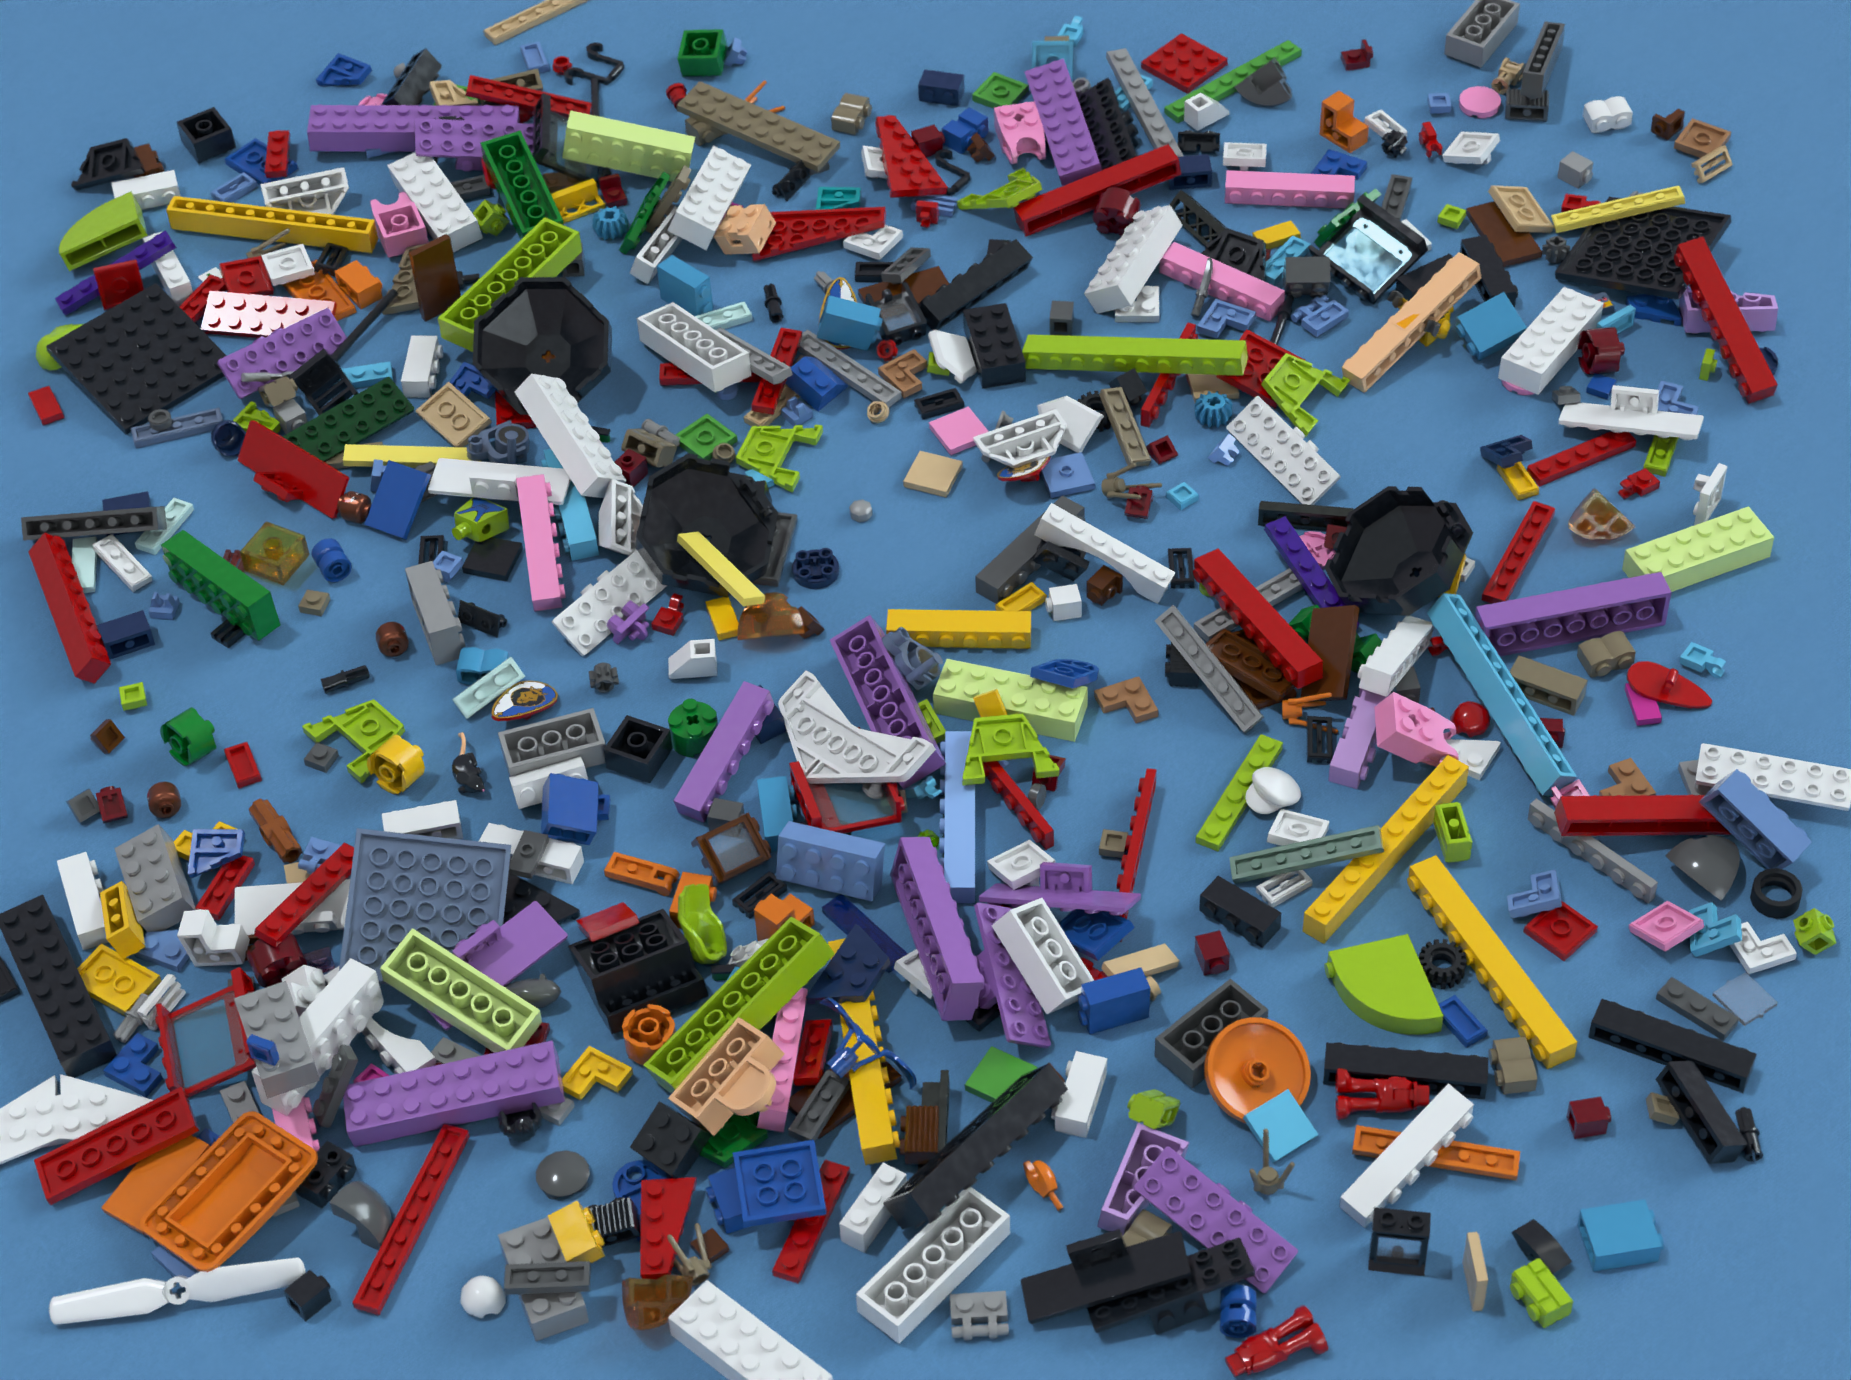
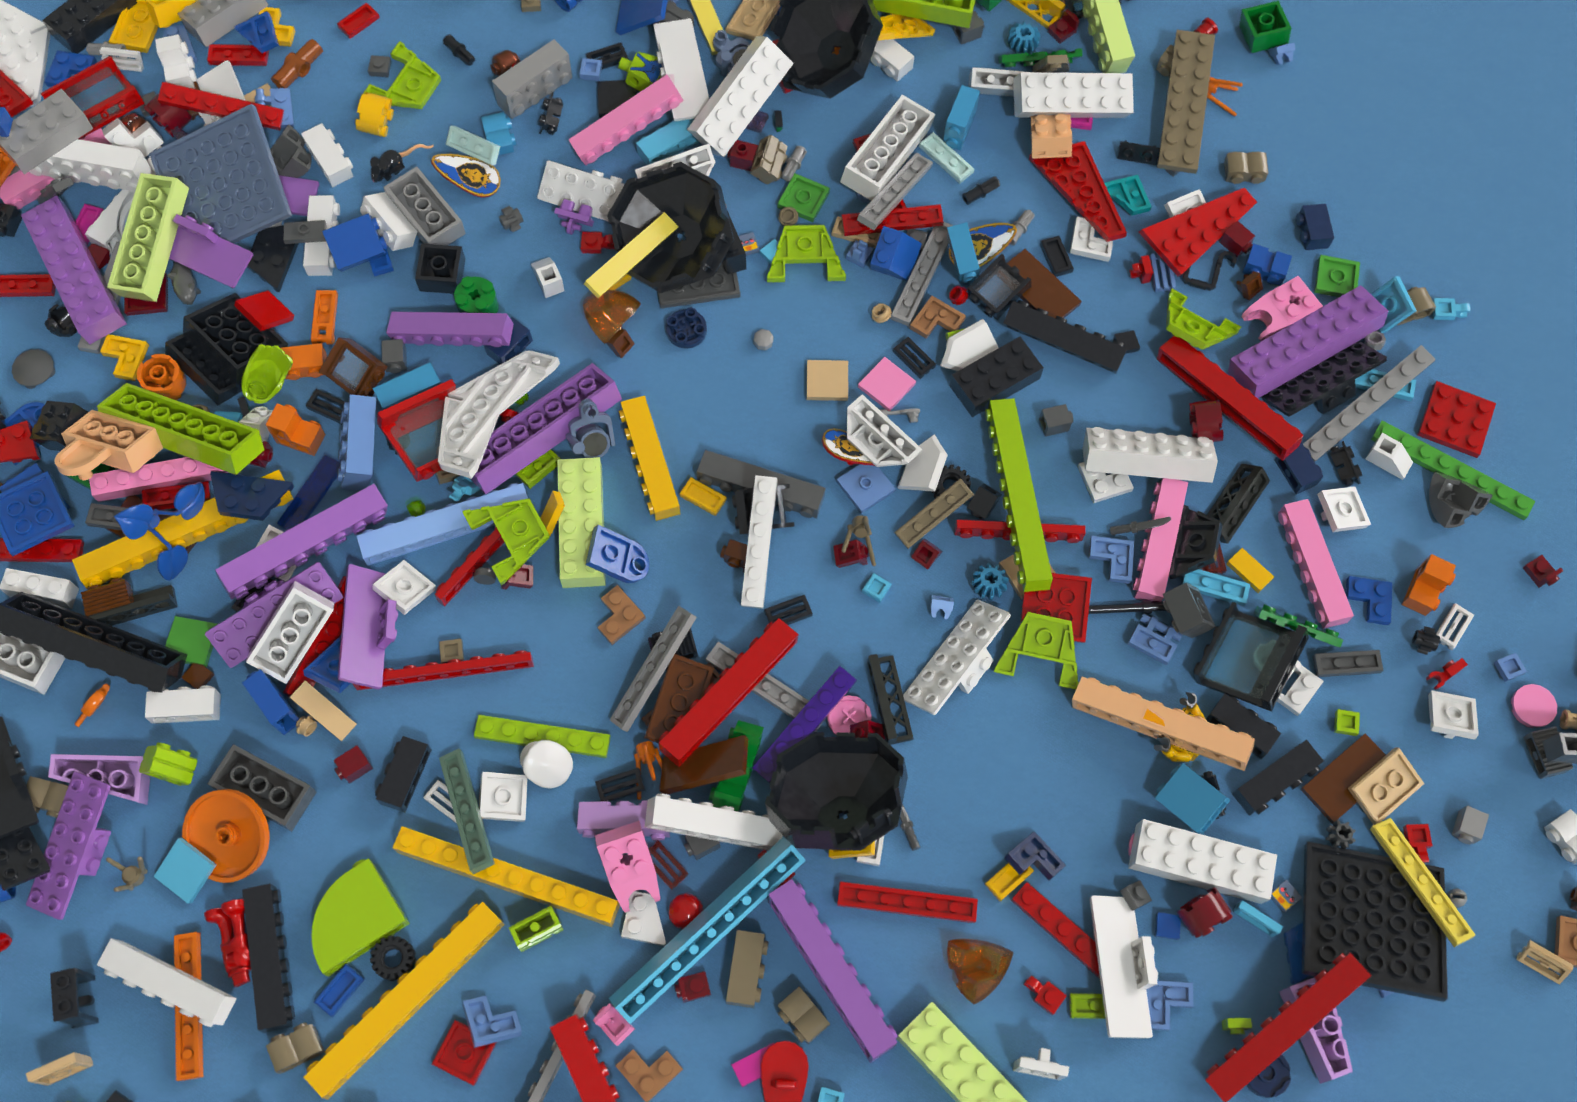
camera: 65 degrees right, 20 degrees up
(905, 265) = (1066, 274): dark grey plate -> none
(1064, 602) = (708, 530): white brick -> none

